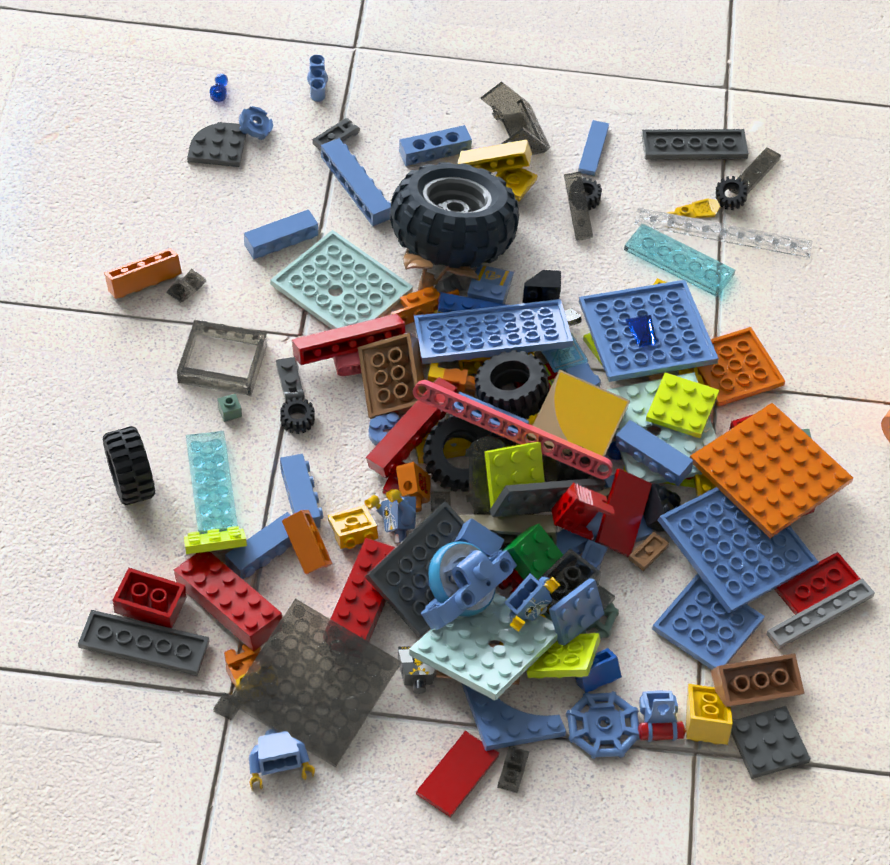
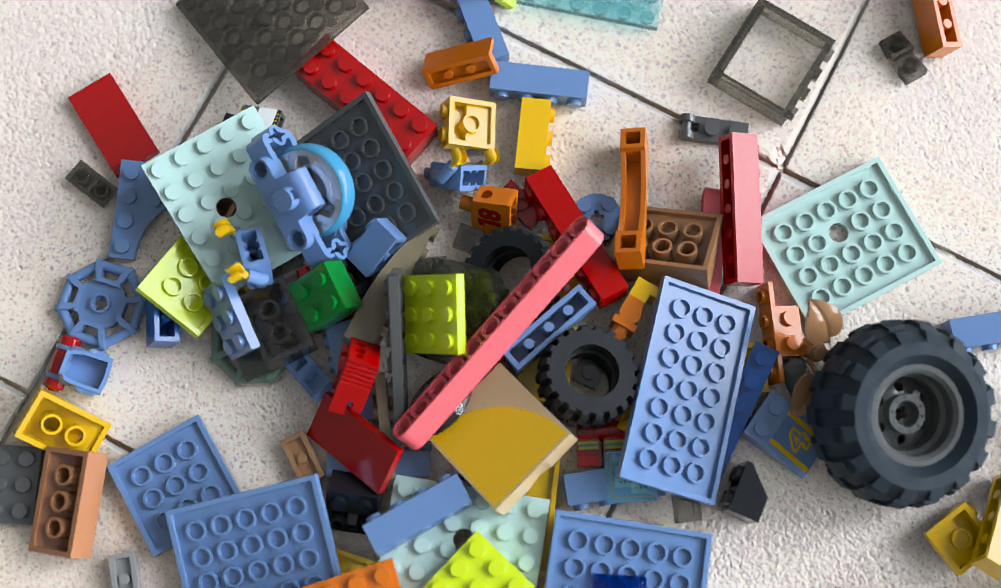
camera: 115 degrees right, 25 degrees up
(229, 407) = (692, 53): sand green plate -> none
(281, 234) = (954, 196): medium blue brick -> none
(297, 406) = (662, 108): black tyre -> none
(339, 412) = (631, 232): none -> orange arch
(344, 483) = (534, 136): none -> yellow brick

